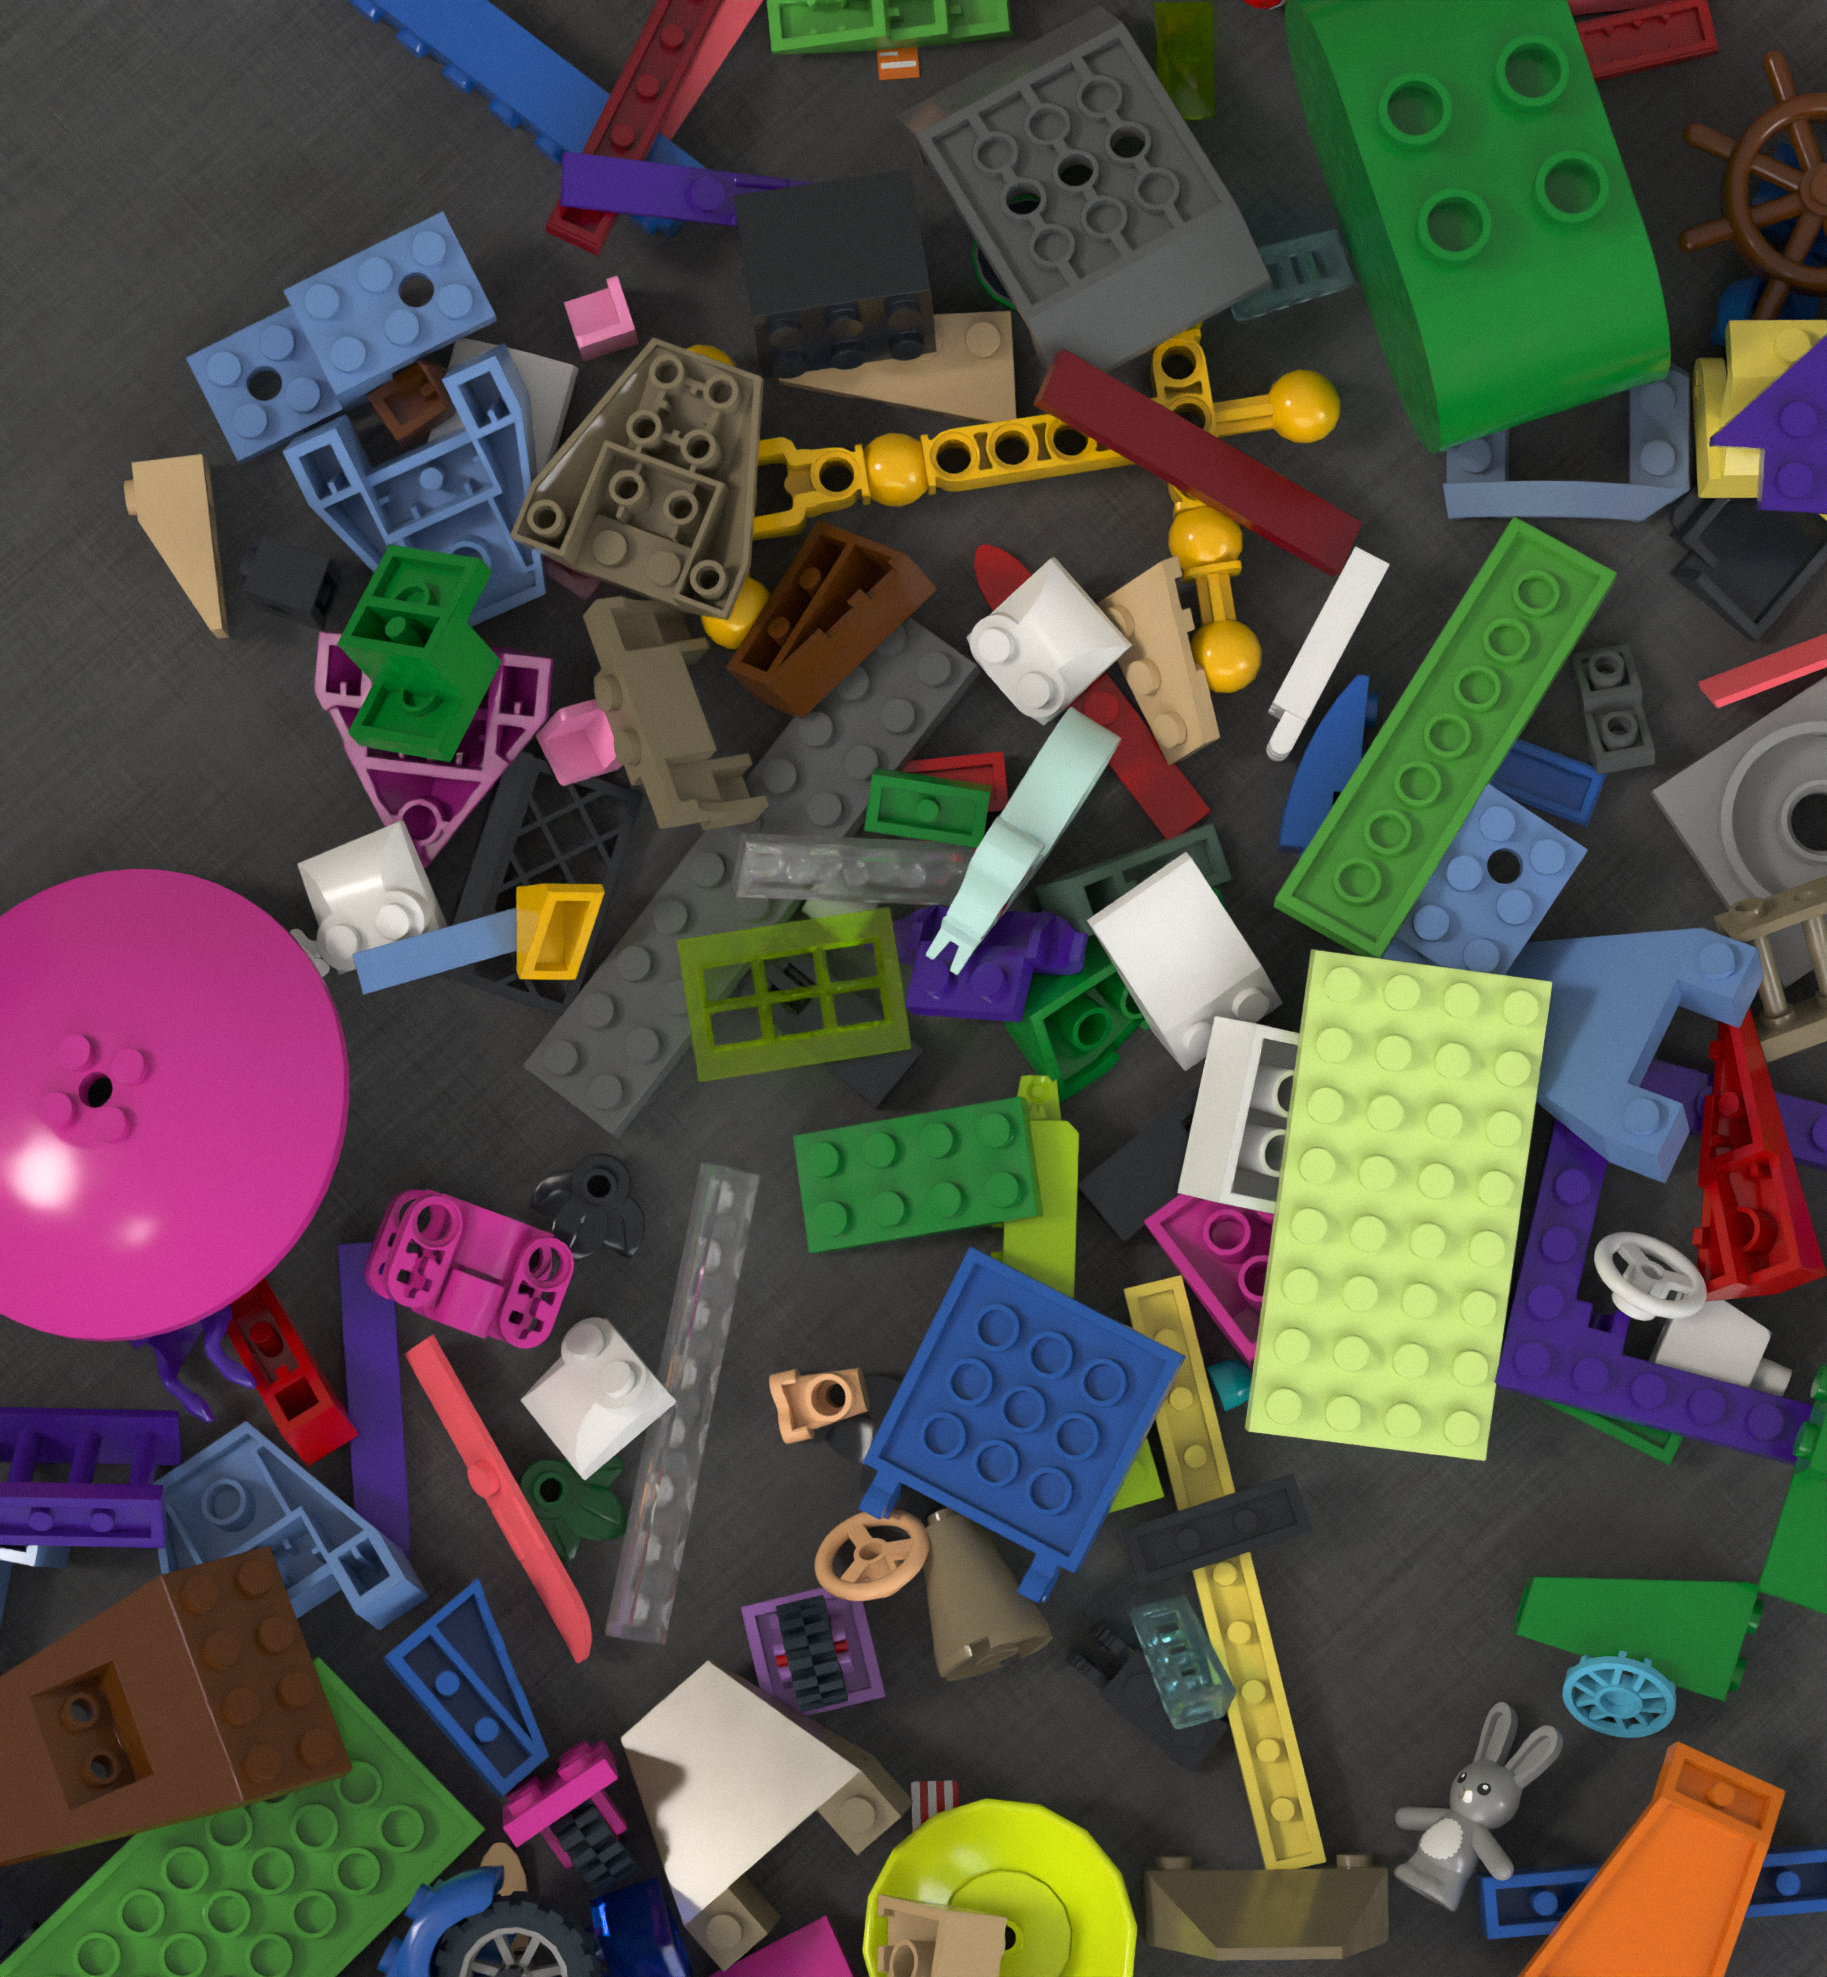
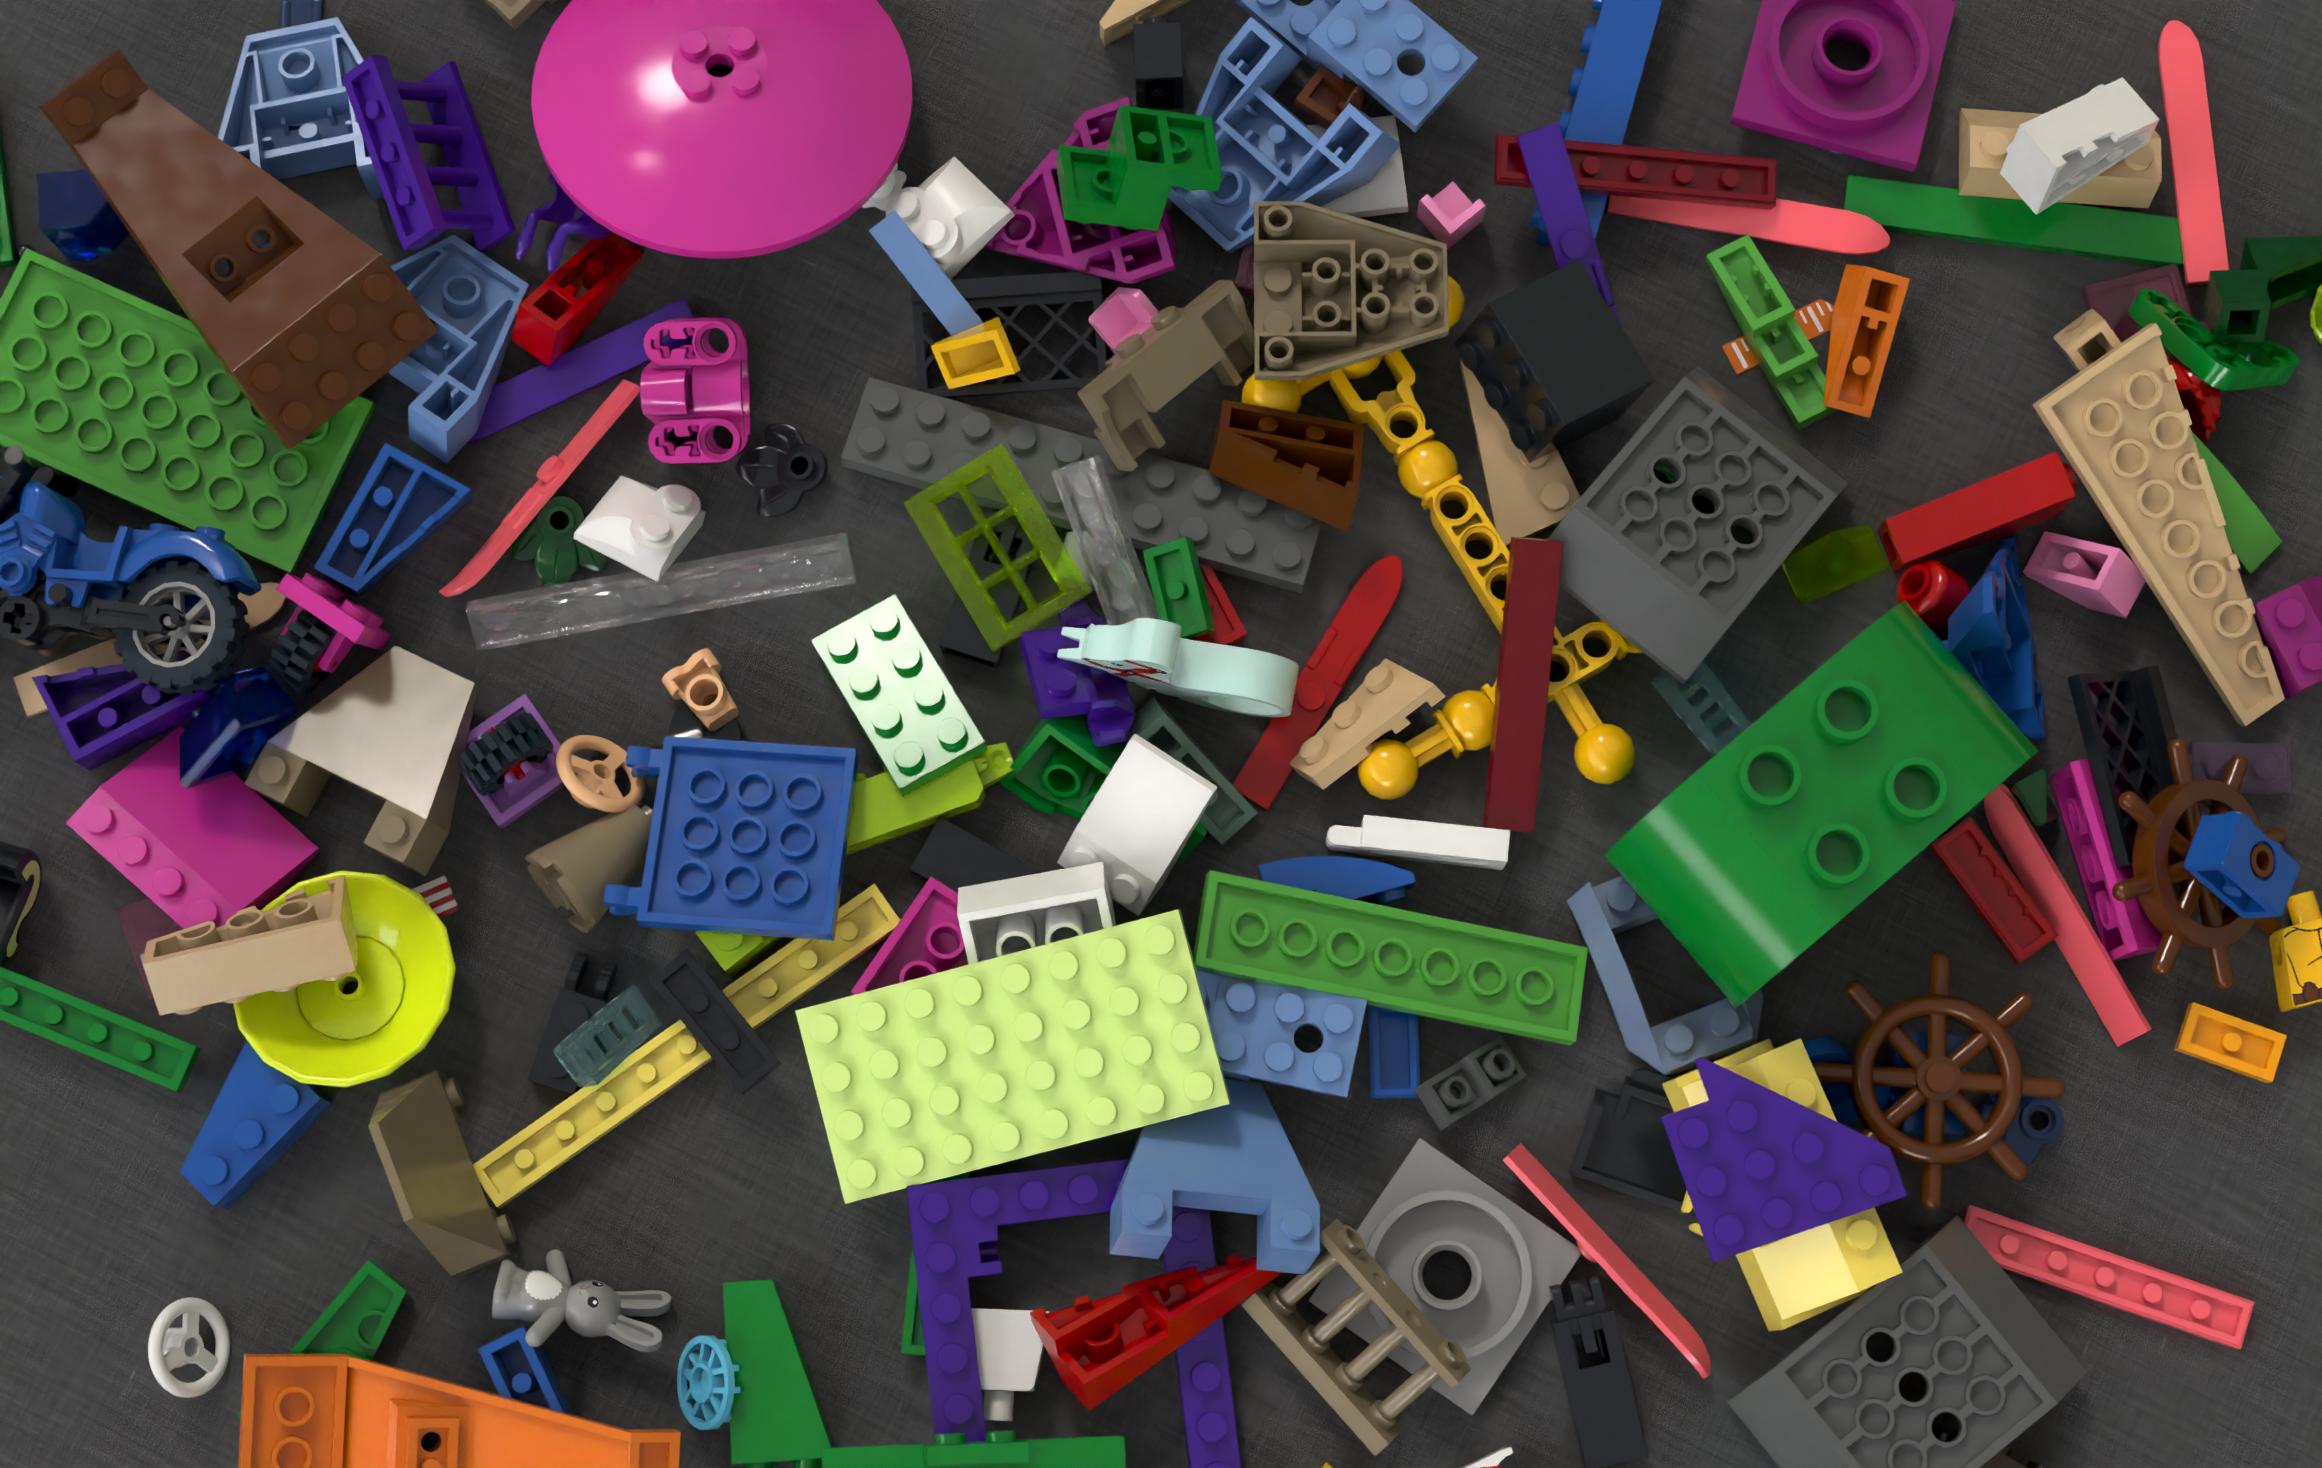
camera: 70 degrees right, 5 degrees down
(1046, 643) = (1341, 631): white slope -> none
(1231, 1382) = (834, 988): teal hinge -> none
(1646, 1284) = (1027, 1271): white piece -> none

